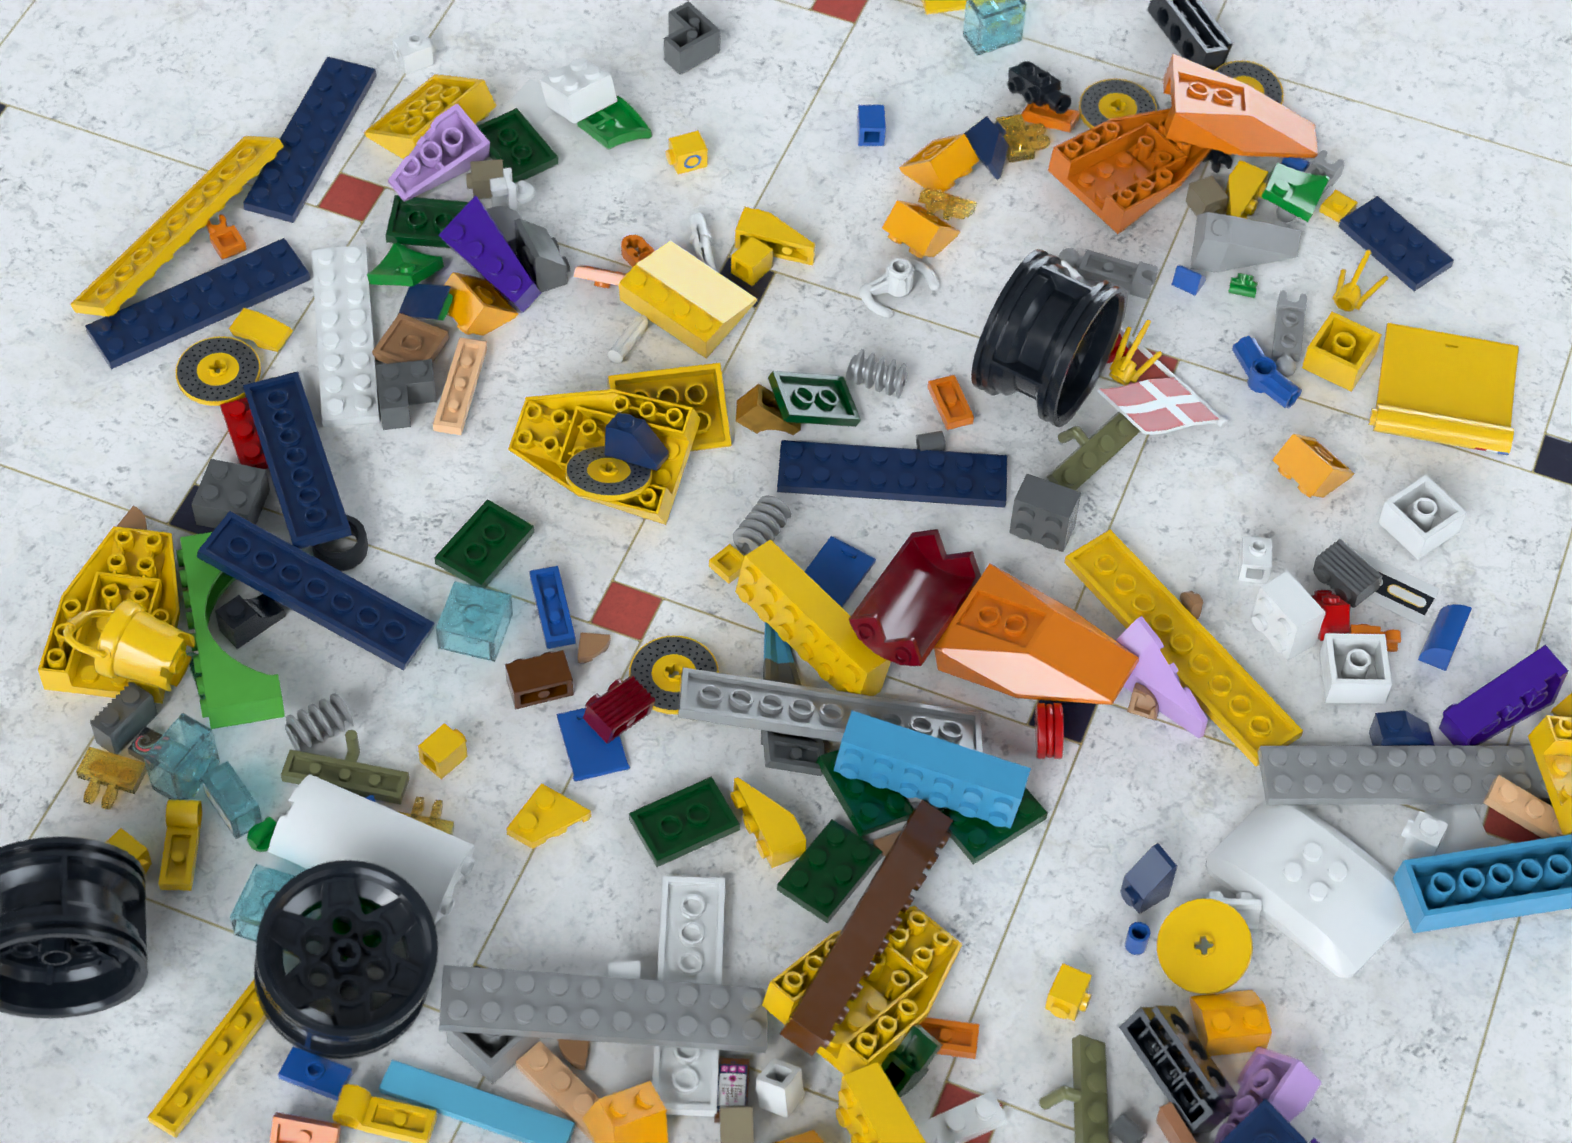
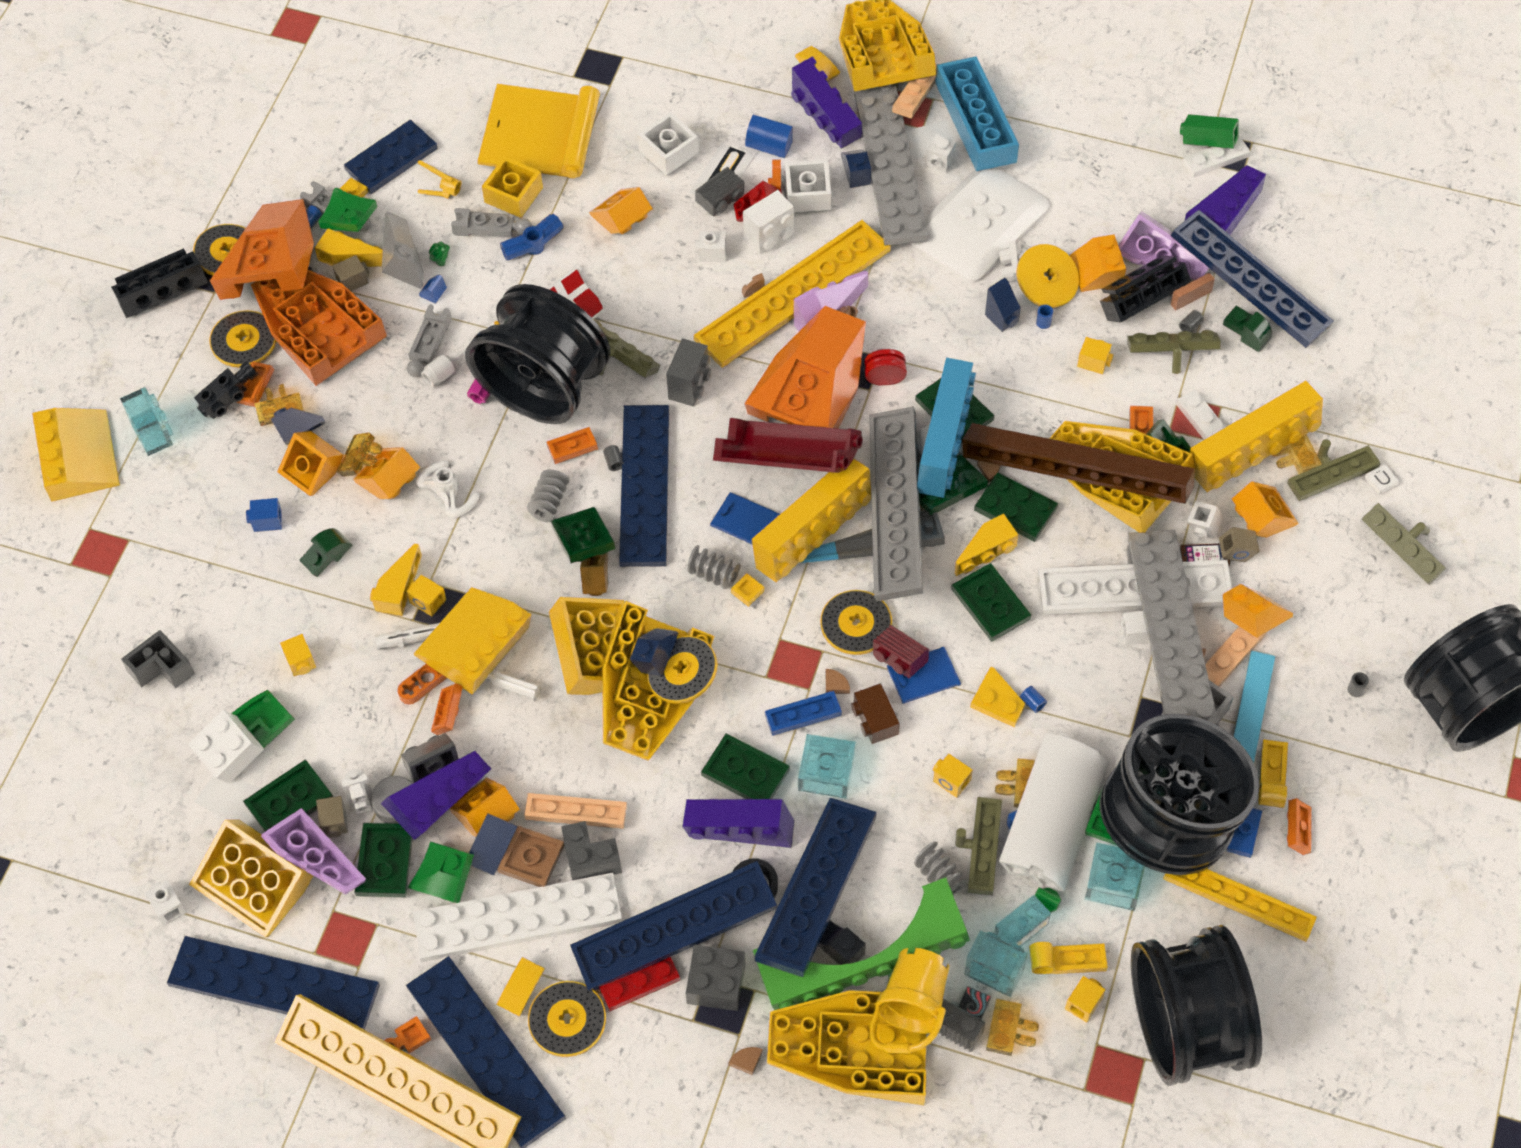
camera: 90 degrees left, 5 degrees up
(413, 531) = (740, 821): none -> dark purple wedge
(538, 853) = (1033, 699): none -> blue hinge
(822, 175) = (326, 547): none -> dark green brick

